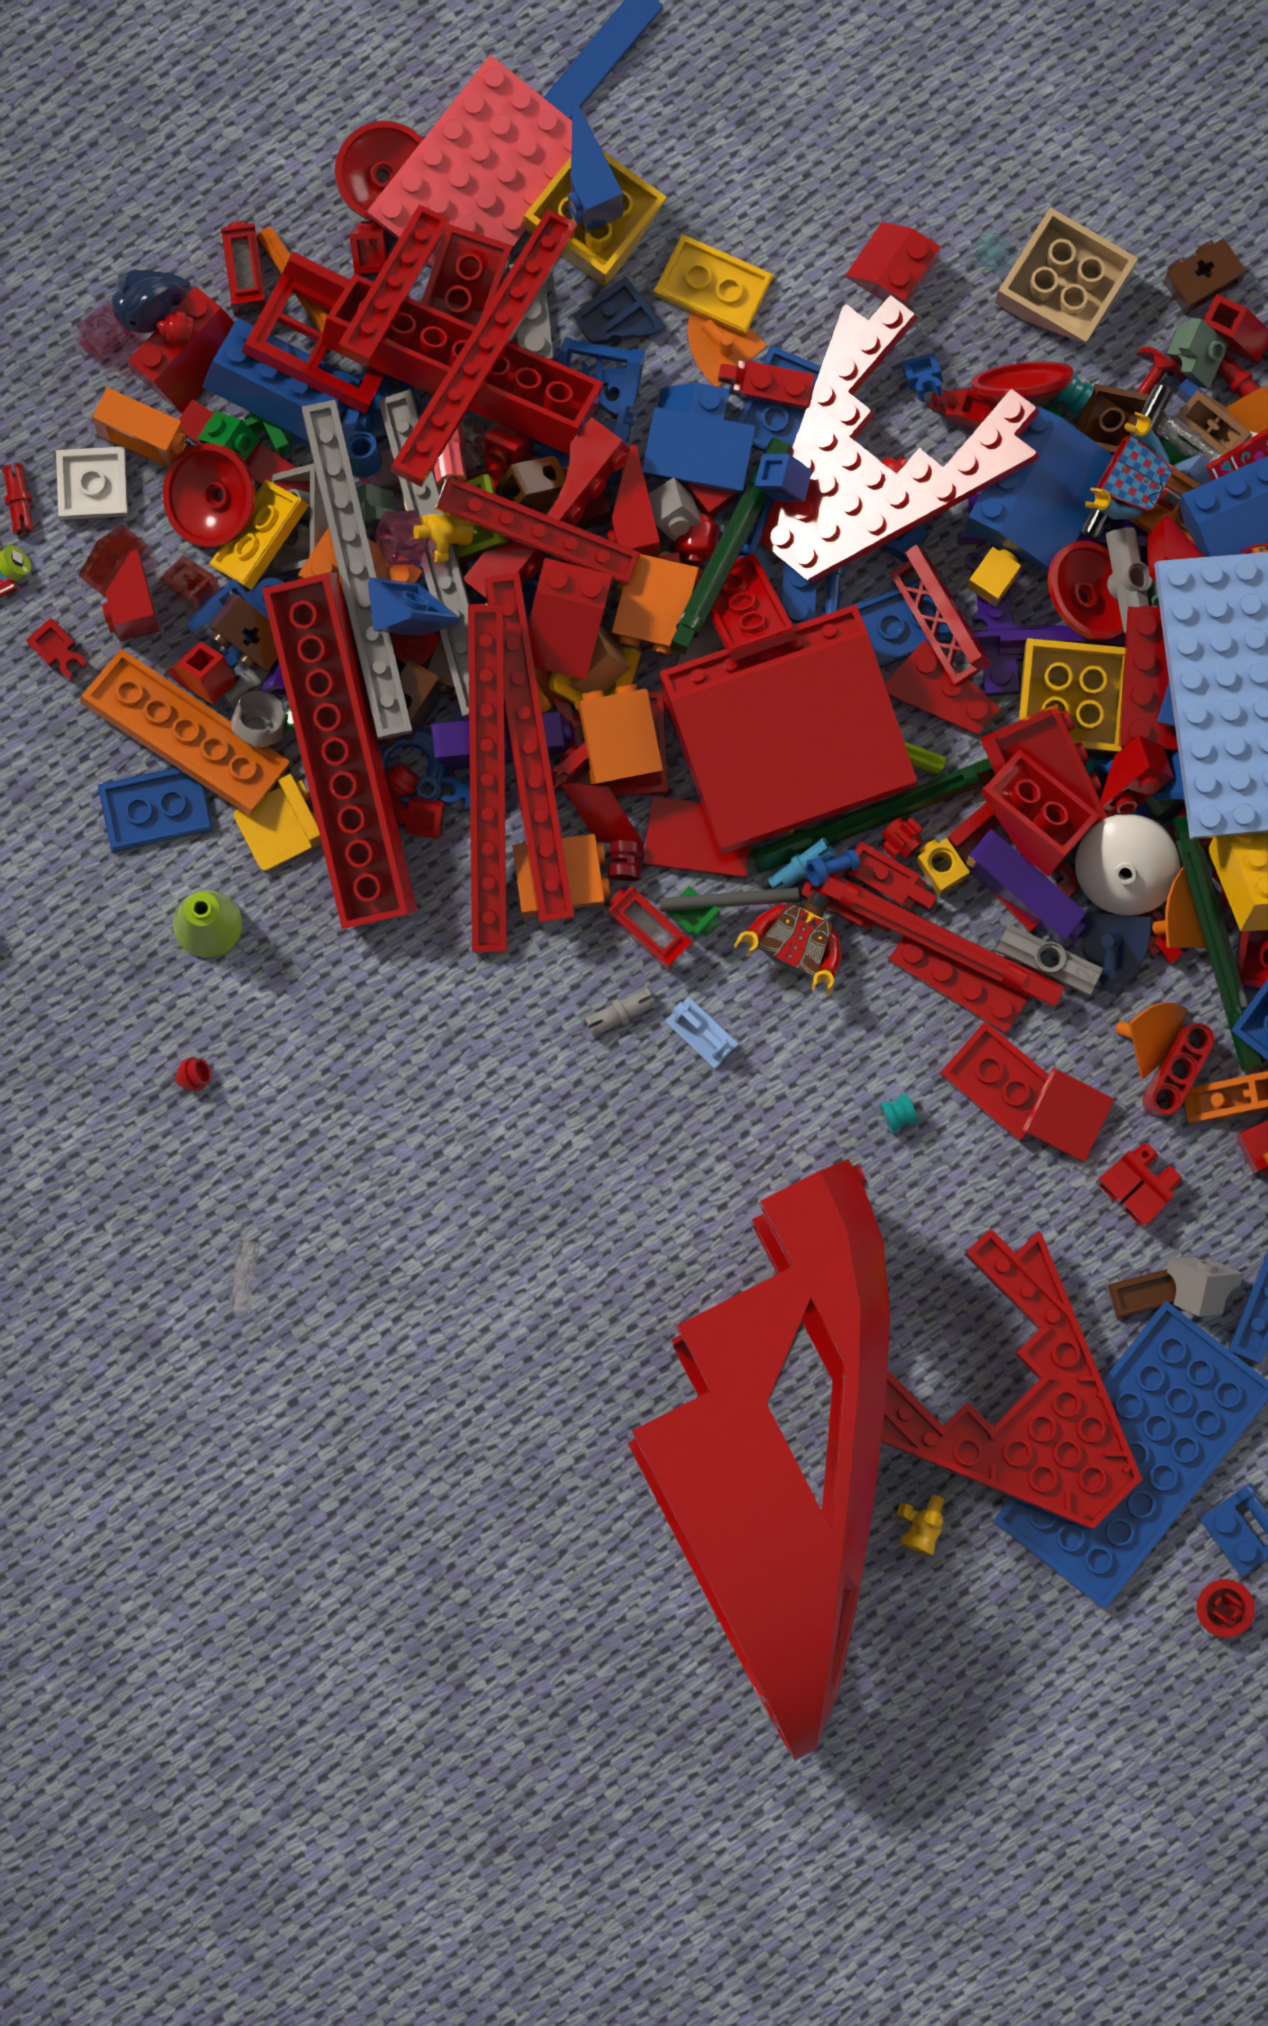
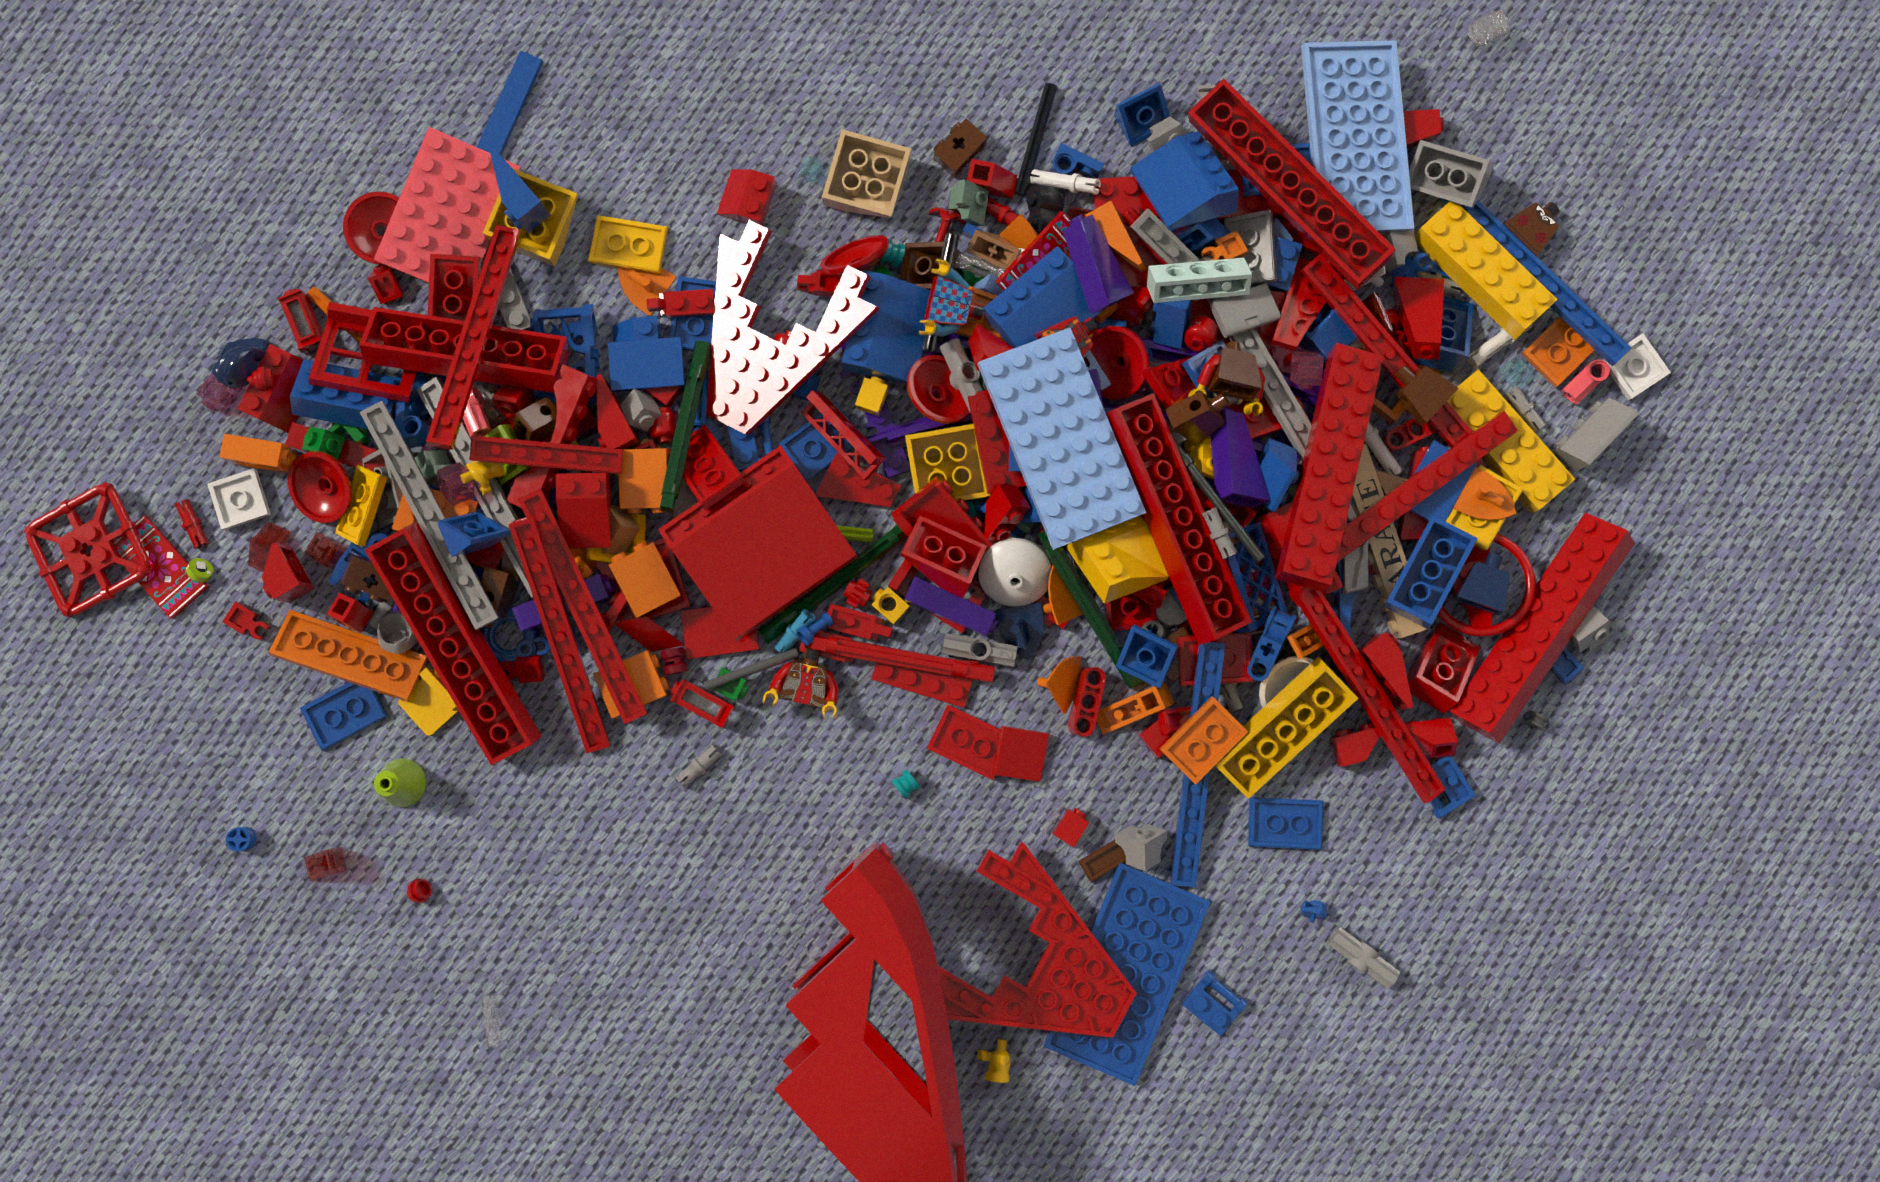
camera: 15 degrees left, 5 degrees up
(74, 1002) = (325, 863): none -> clear red slope
(392, 285) = (400, 309): red plate -> none
(401, 780) = (505, 649): red plate -> none
(617, 316) = (568, 284): dark blue wing -> none
(701, 1032) = (757, 764): light blue hinge -> none
(783, 477) = (709, 368): blue brick -> none
(923, 375) = (787, 269): blue plate -> none
(1110, 1233) = (1071, 826): none -> red brick
(1133, 1170) = (1091, 792): red hips -> none
(1225, 1608) = (1215, 1062): red piece -> none

